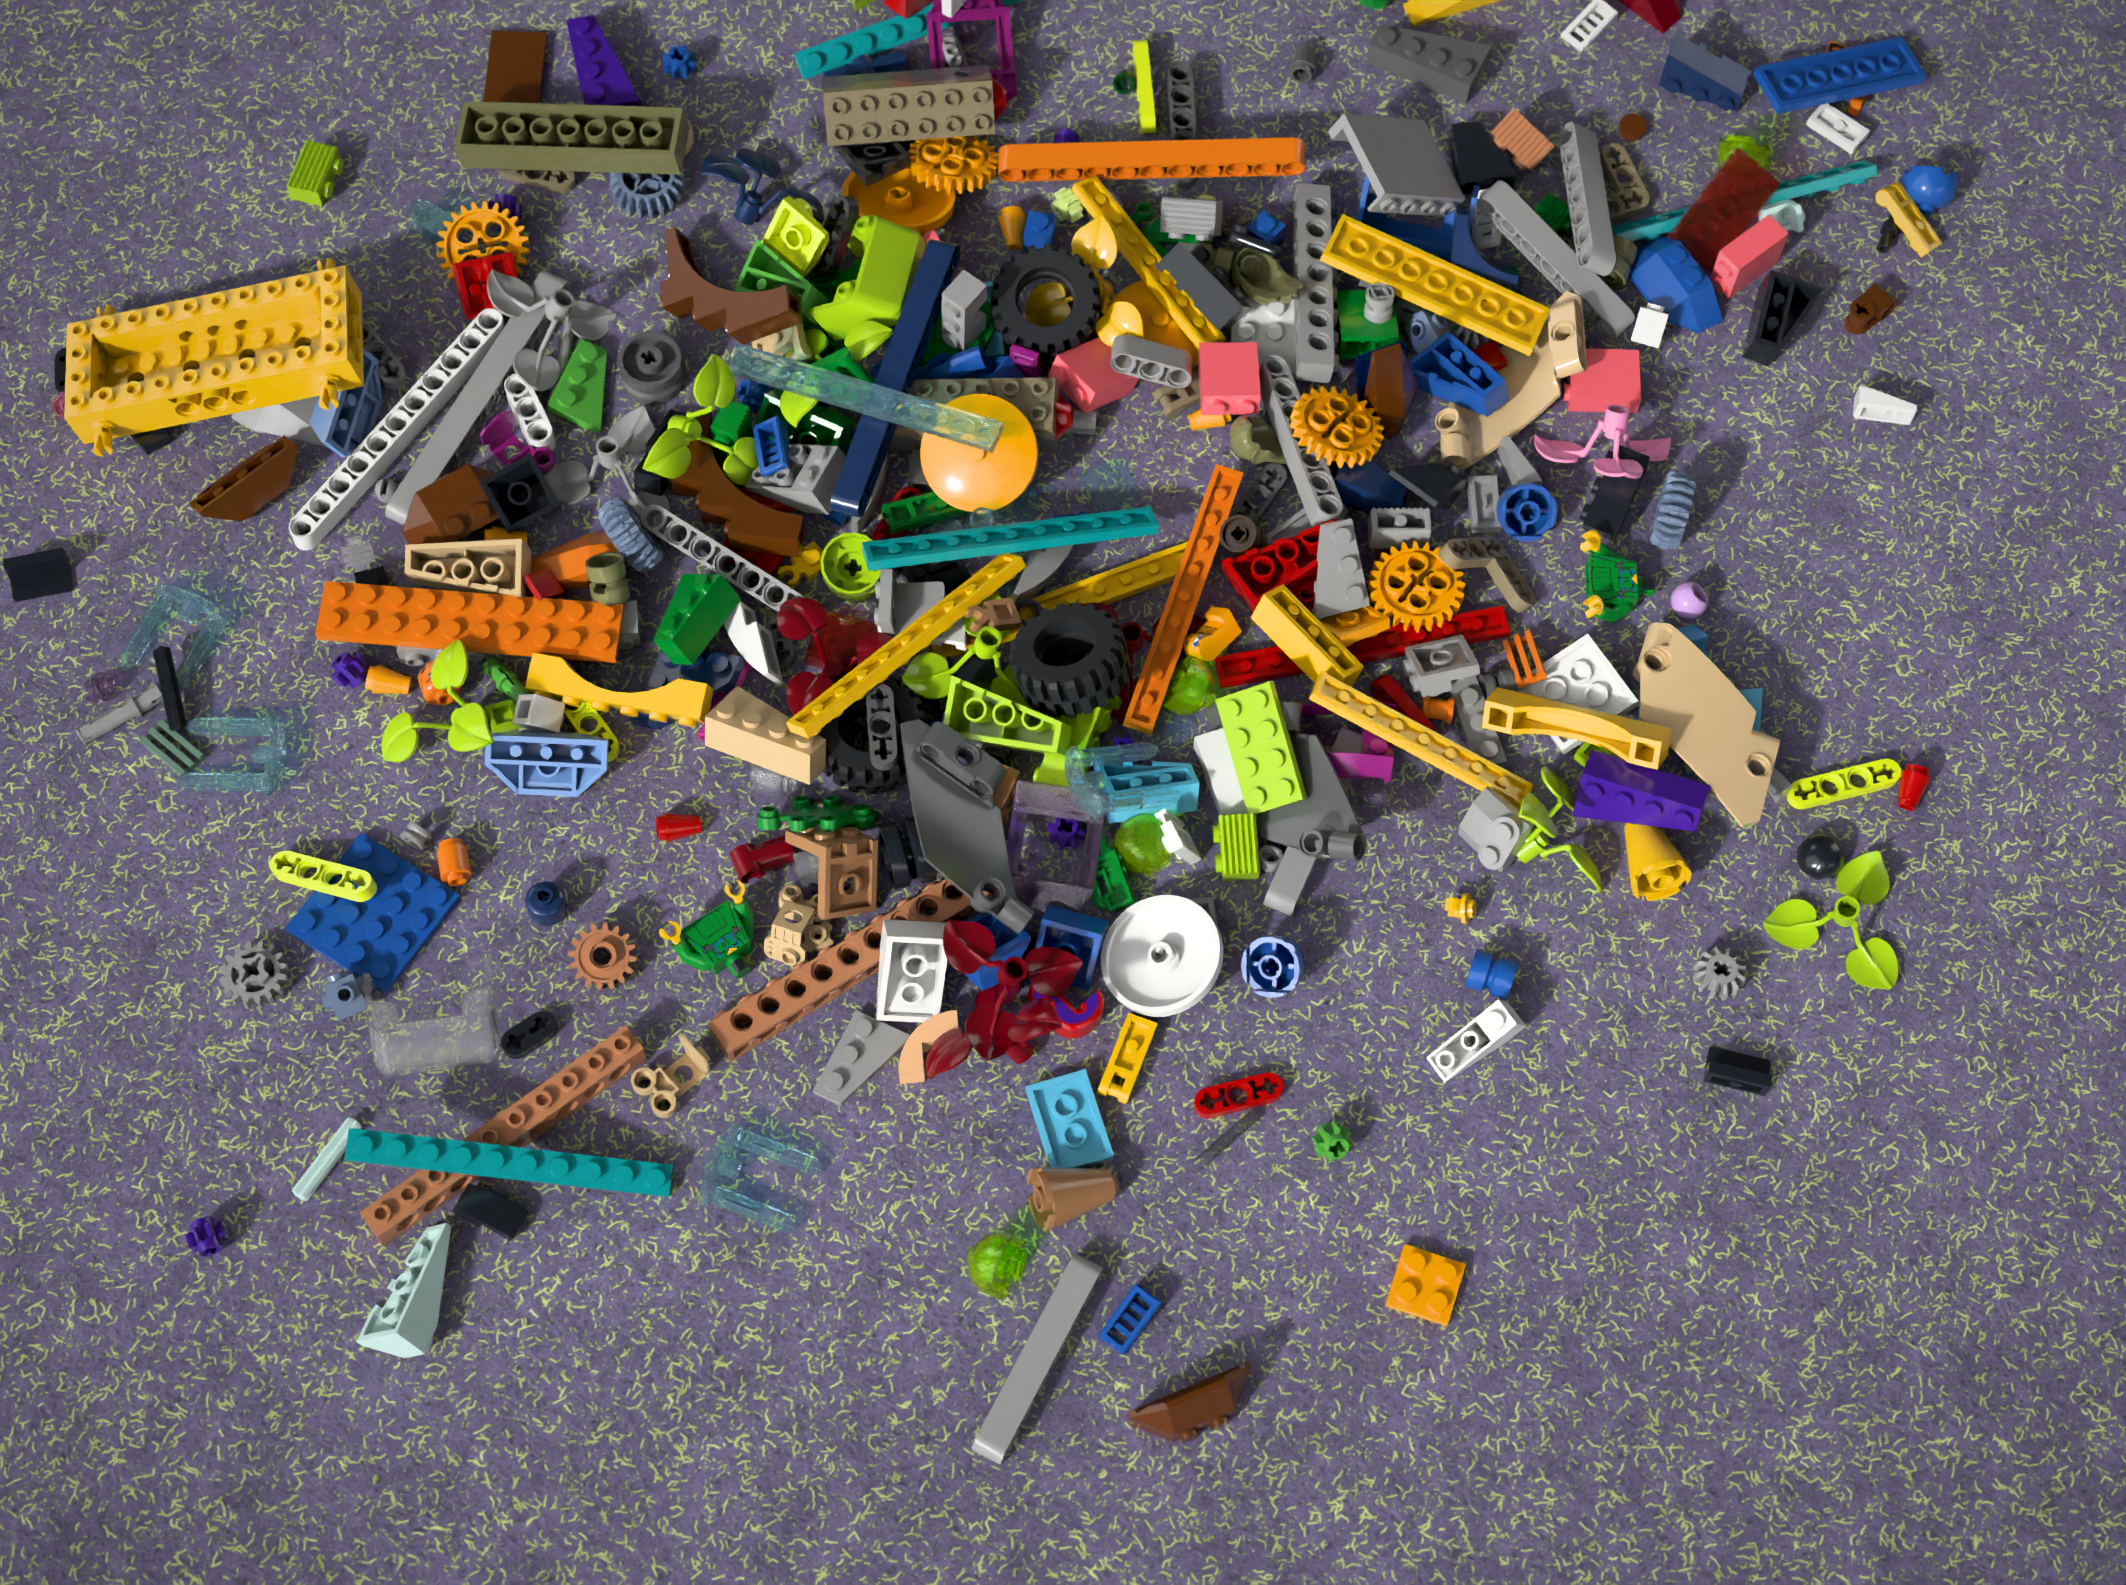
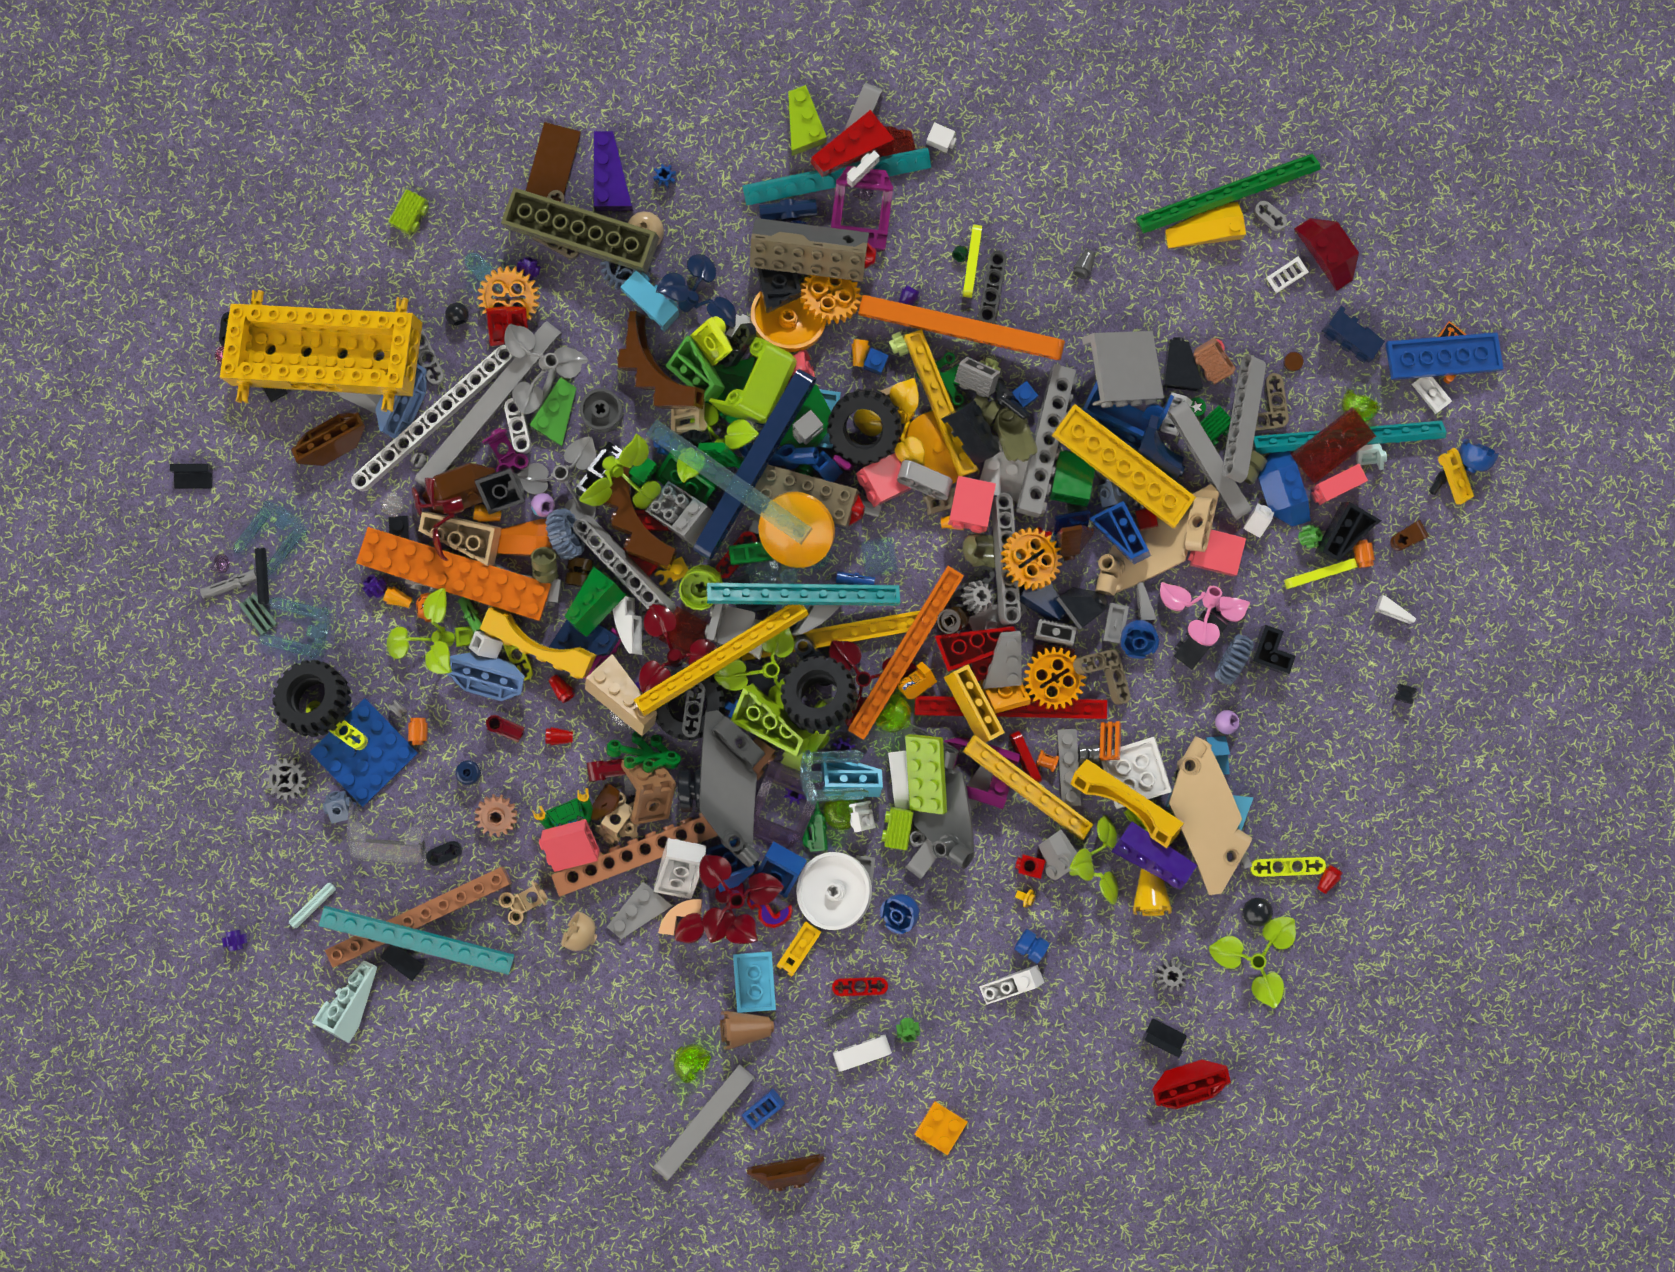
camera: 15 degrees right, 20 degrees up
(295, 859) = (296, 682): none -> black tyre
(410, 287) = (456, 314): none -> black piece
(447, 522) = (449, 506): none -> dark red plant
(543, 585) = (504, 557): red slope -> none
(585, 509) = (538, 501): none -> lavender piece
(592, 831) = (506, 729): none -> dark red piece
(660, 584) = (575, 578): none -> dark brown wheel
(669, 758) = (562, 690): none -> red cone
(696, 208) = (656, 305): none -> medium azure wedge
(721, 1163) = (542, 961): clear light blue piece -> none
(728, 970) = (569, 845): none -> coral brick
(762, 432) = (673, 485): blue slope -> none
(772, 900) = (609, 798): none -> reddish brown piece
(773, 1102) = (580, 933): none -> tan cylinder
(953, 51) = (850, 211): light grey gear -> none
(996, 613) = (782, 647): medium nougat plate -> none
(1267, 1192) = (862, 1053): none -> white beam
(1271, 499) = (977, 597): none -> light grey gear
(1379, 302) = (1082, 477): light grey wheel -> none
(1430, 60) = (1170, 283): dark grey wedge -> none
(1437, 663) = (1055, 735): light grey plate -> none
(1464, 851) = (1036, 872): none -> red brick
(1611, 581) = (1180, 700): torso -> none
(1720, 496) = (1267, 653): none -> black brick
(1729, 334) = (1310, 536): none -> bright green gear
(1759, 380) = (1320, 573): none -> neon yellow beam
(1803, 1126) = (1190, 1084): none -> red wedge
(1813, 343) = (1364, 554): none -> orange brick
(1936, 512) = (1405, 693): none -> black wheel

